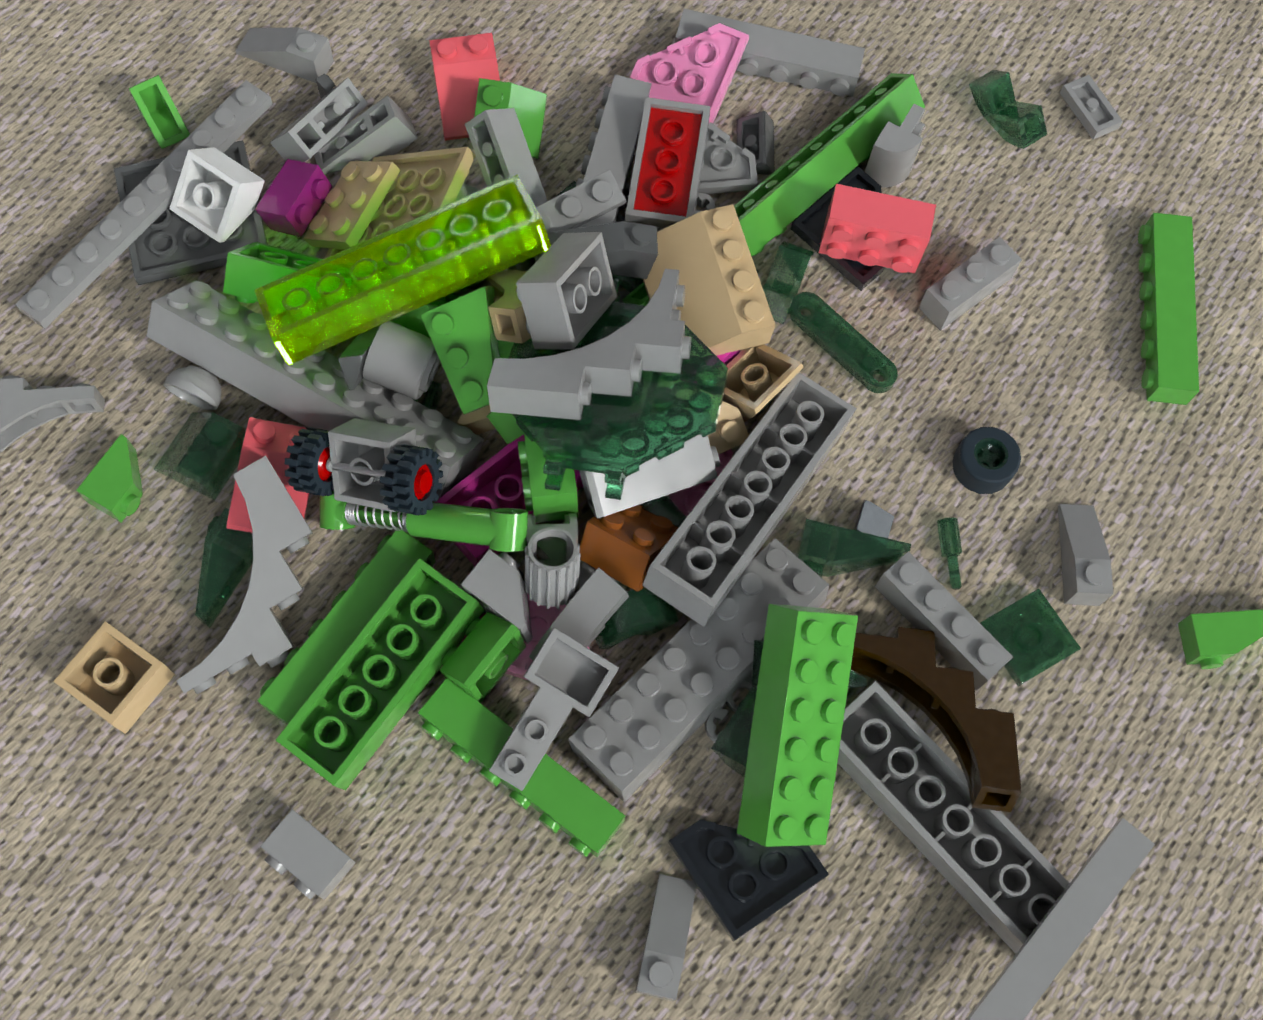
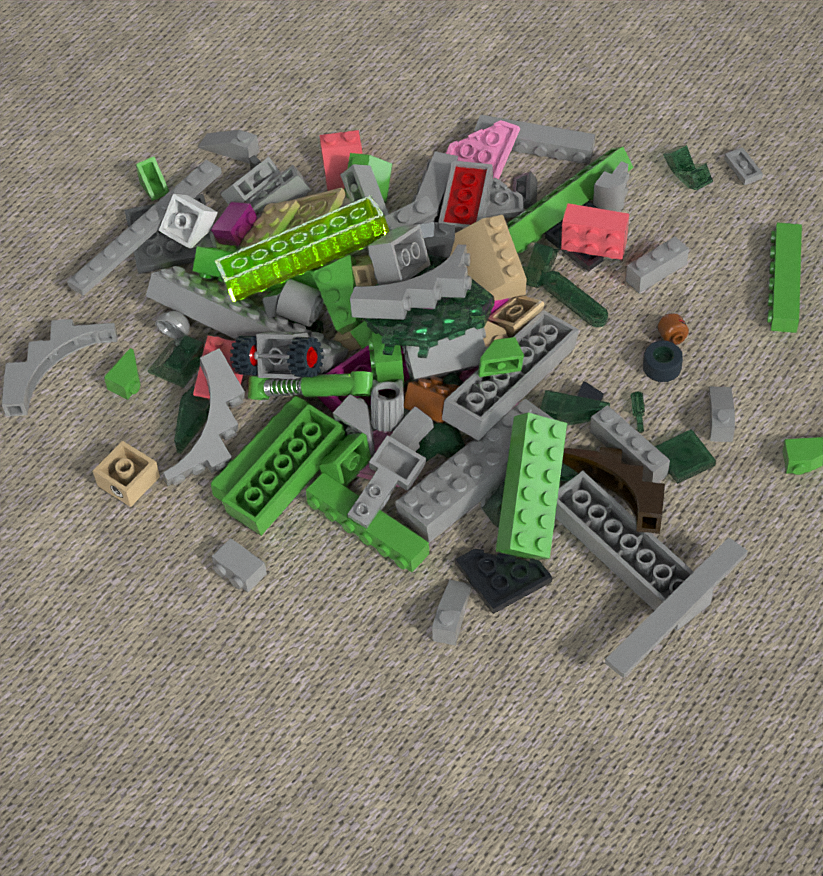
camera: 10 degrees right, 15 degrees down
(743, 478) = (501, 358): none -> bright green slope
(1000, 401) = (673, 328): none -> dark orange head

